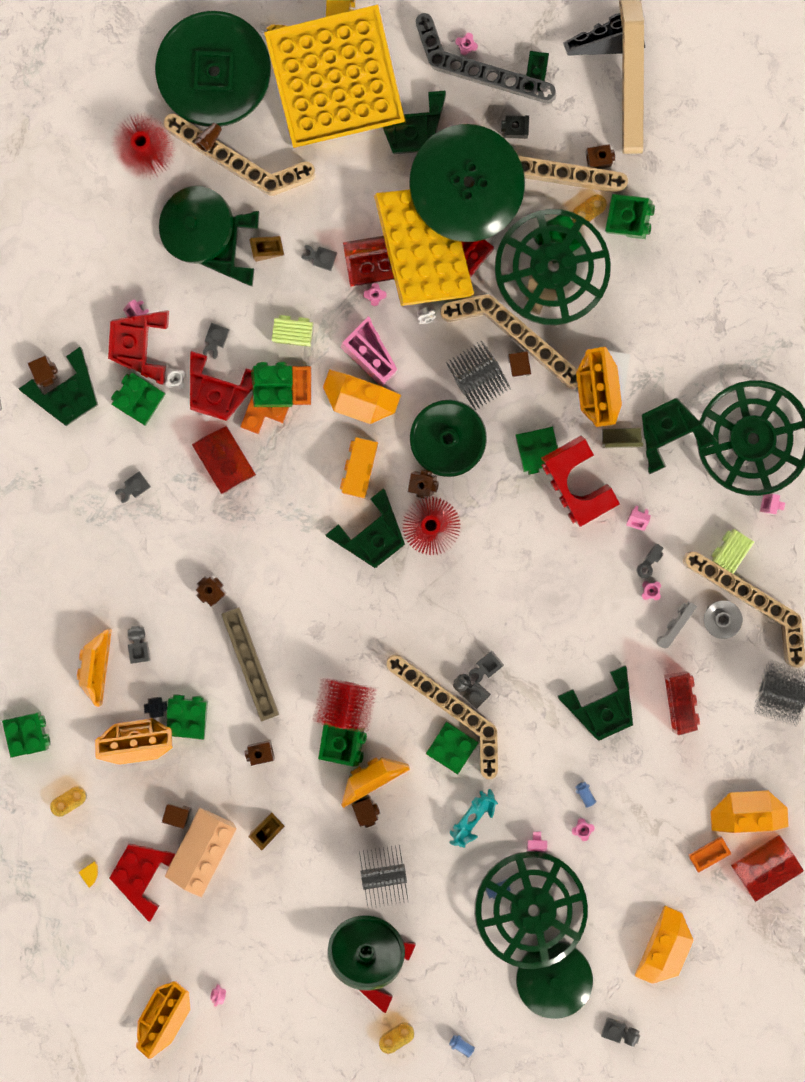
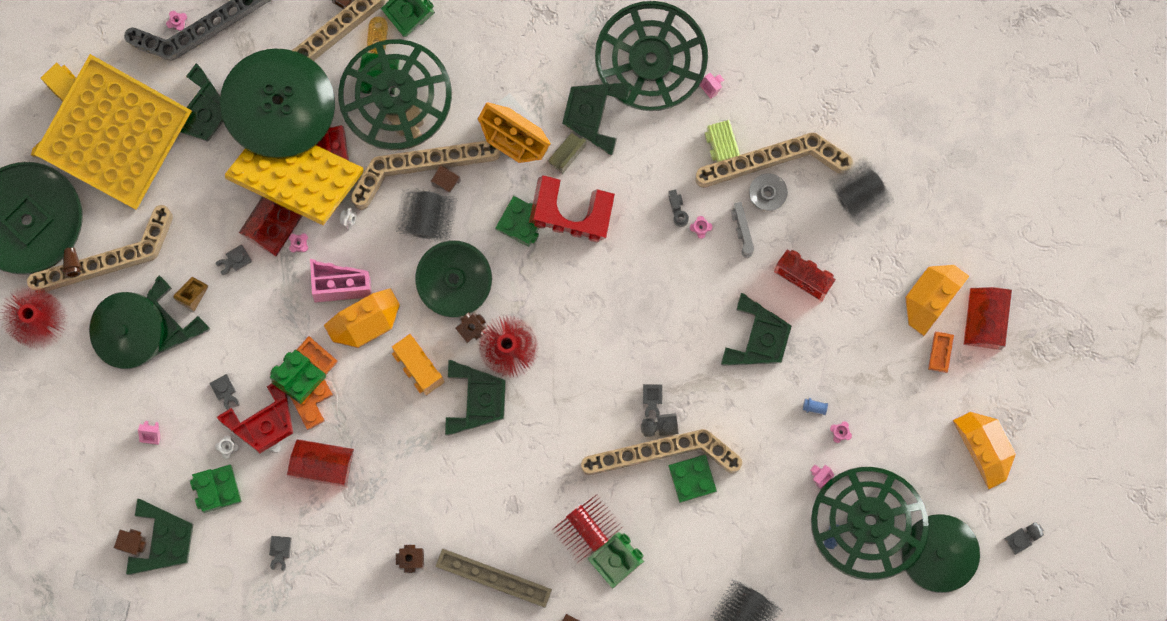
camera: 50 degrees left, 10 degrees down
(129, 343) = (168, 456): red wing -> none
(292, 331) = (271, 327): yellowish green brick -> none
(366, 812) = (685, 586): reddish brown brick -> none
(371, 777) = (662, 560): light orange wedge -> none
(462, 831) = (756, 490): teal piece -> none
(521, 132) = (269, 42): pearl dark grey brick -> none
(638, 519) = (638, 191): bright pink tile -> none

